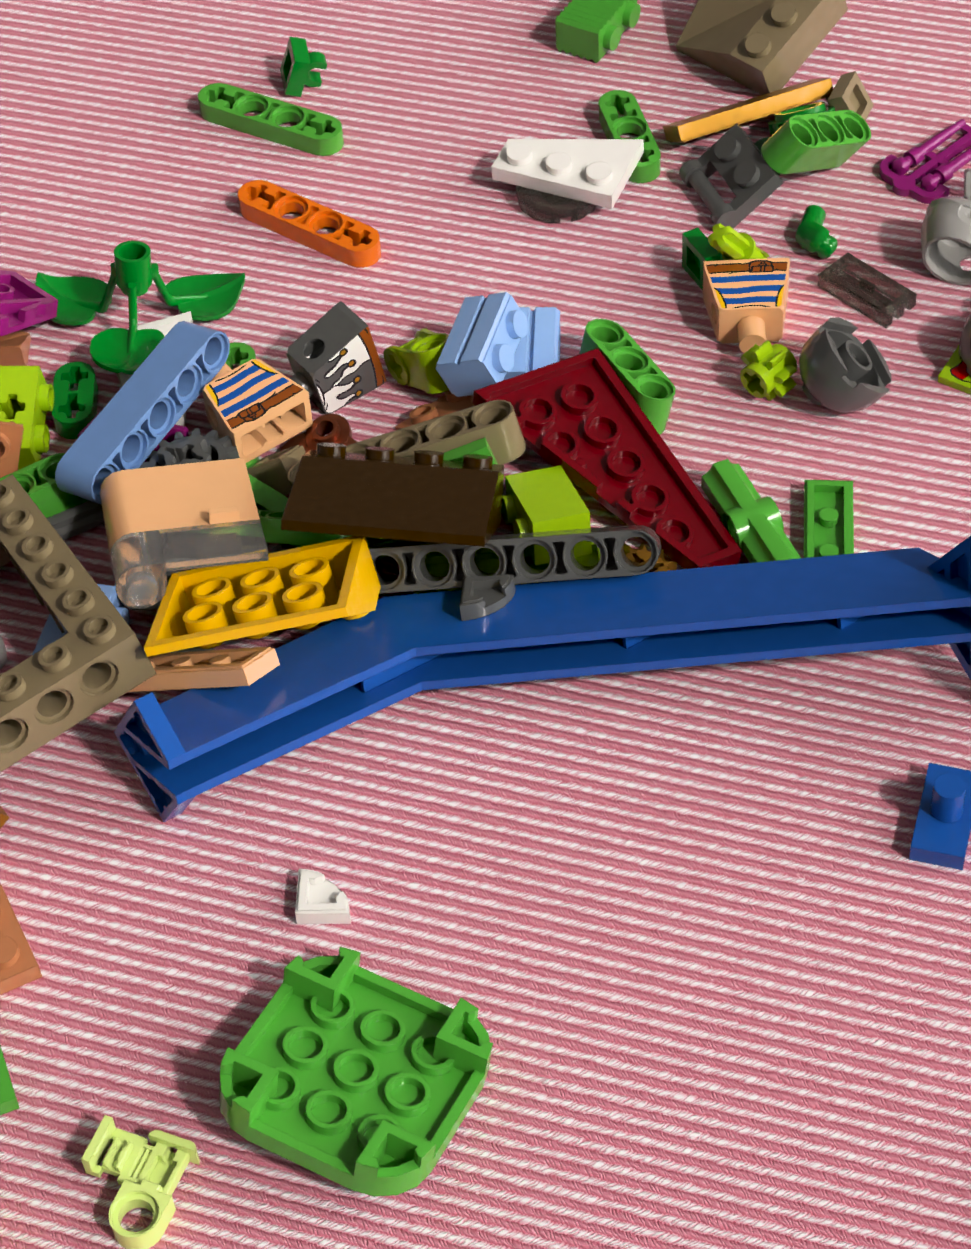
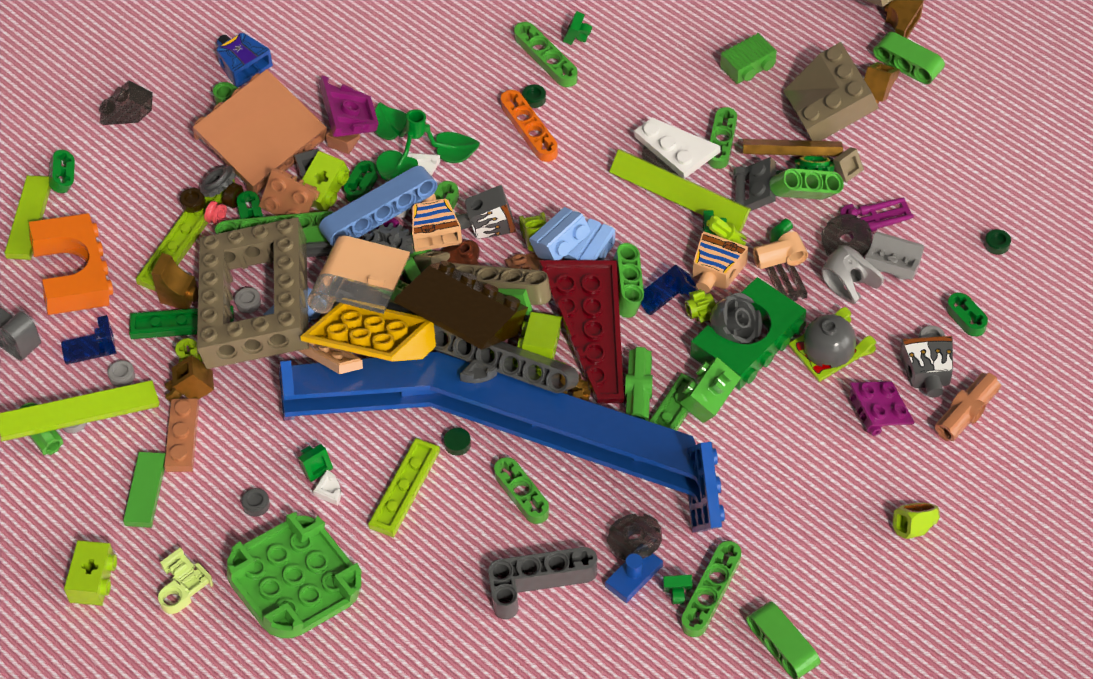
camera: 25 degrees right, 5 degrees up
(197, 979) = (255, 502): none -> dark grey tile
(270, 862) = (315, 461): none -> green tile
(291, 177) = (534, 95): none -> dark green tile
(455, 844) = (404, 487): none -> lime tile
(501, 730) = (457, 441): none -> dark green tile
(603, 223) = (677, 188): none -> lime tile
(652, 743) = (521, 501): none -> bright green beam
(698, 364) = (666, 288): none -> clear blue bracket
(845, 842) = (583, 571): none -> dark grey beam
(848, 241) = (787, 249): none -> light nougat piece
(875, 482) = (709, 390): none -> bright green brick
(885, 427) = (779, 315): none -> green arch
(908, 180) = (847, 225): none -> clear smoke tile
(915, 776) = (631, 524): none -> clear smoke tile

